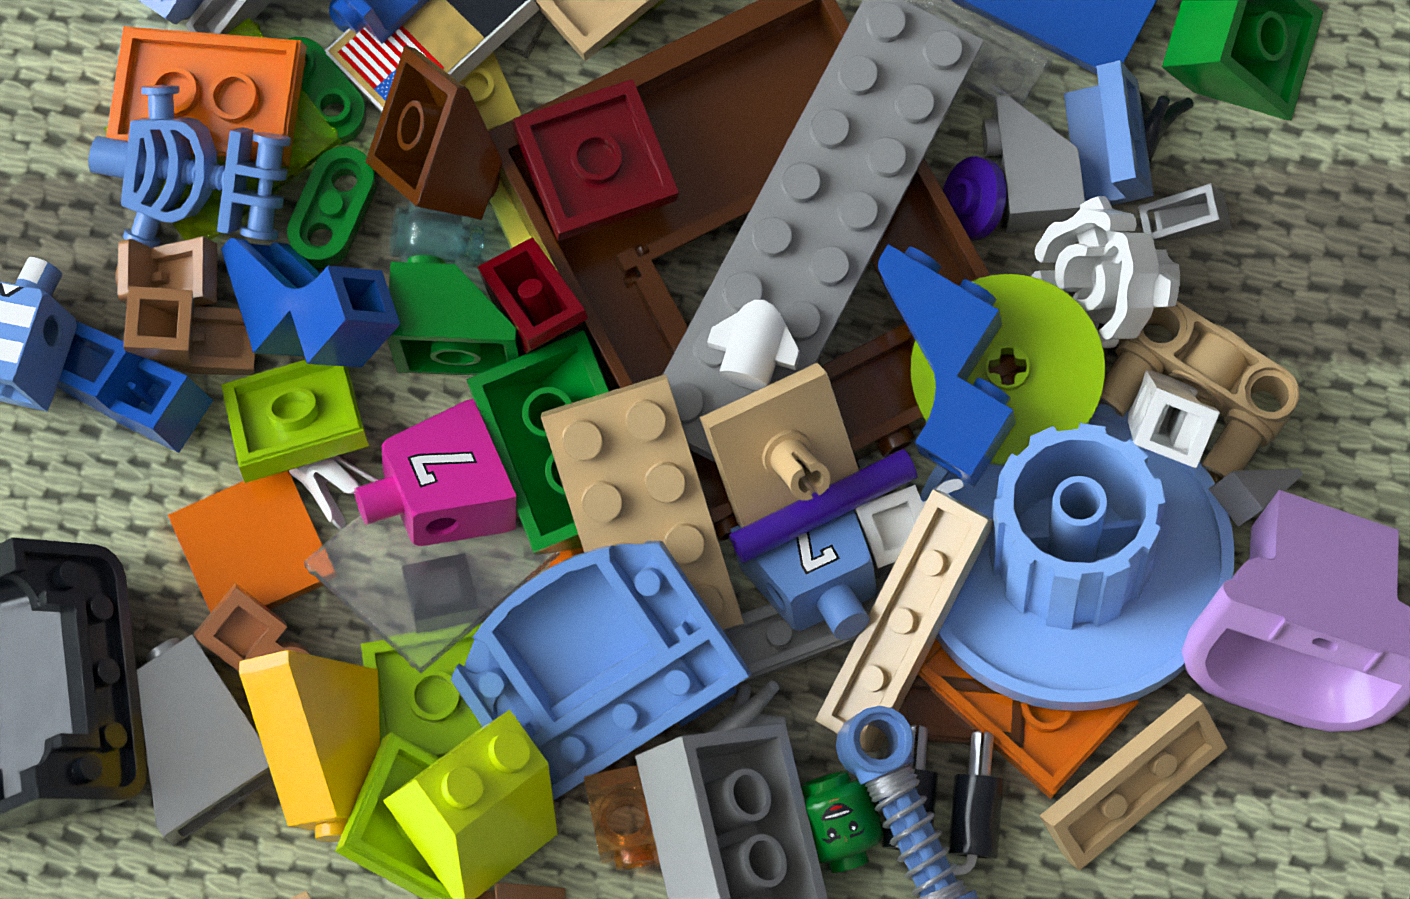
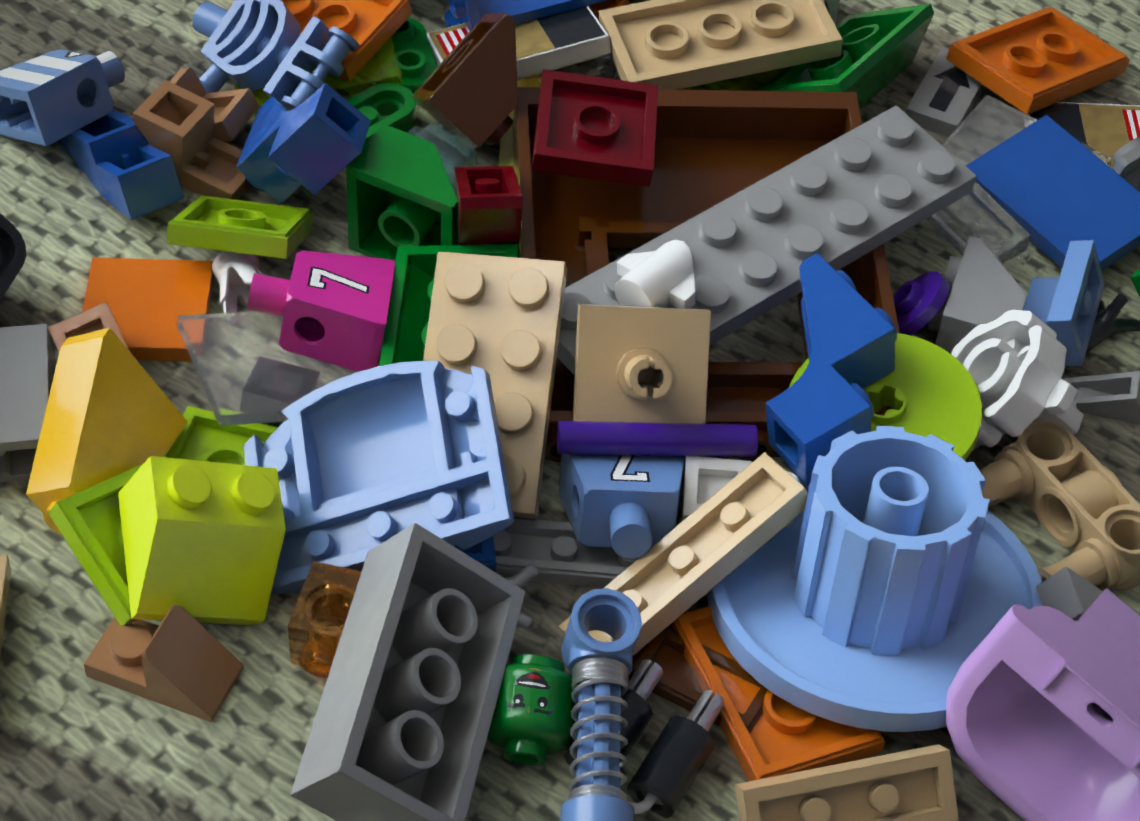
camera: 20 degrees right, 25 degrees down
(1171, 419) = (1020, 477): white leg -> none

